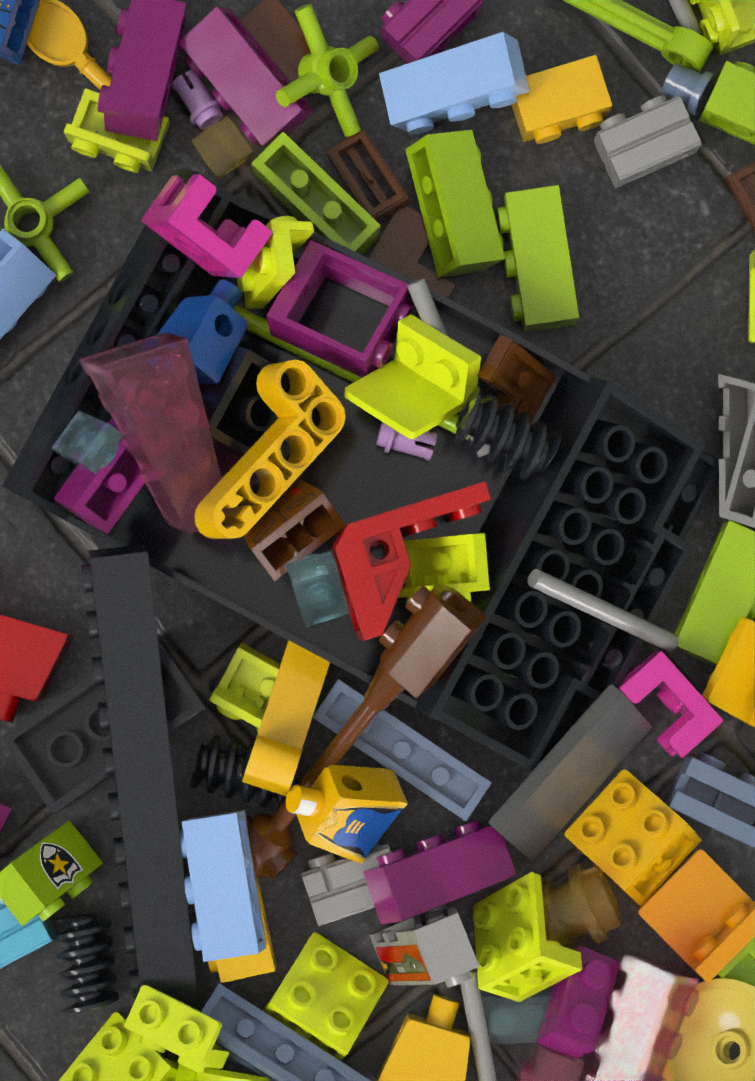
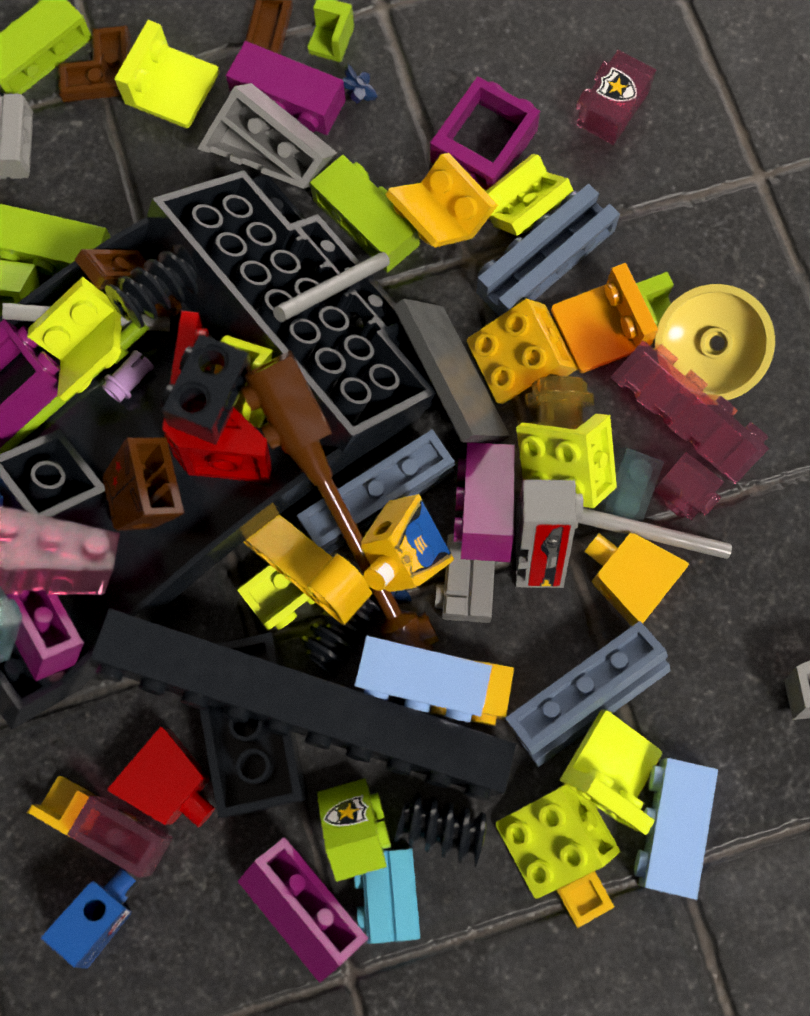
camera: 60 degrees left, 10 degrees down
(178, 1028) = (526, 765): neon yellow bracket -> none
(265, 456) = (68, 436): yellow beam -> none
(318, 588) = (209, 486): clear light blue plate -> none
(327, 996) = (552, 636): neon yellow bracket -> none
(404, 566) = (216, 390): none -> black brick
(579, 1006) = (640, 437): magenta brick -> none
(678, 695) = (430, 266): dark pink panel -> none

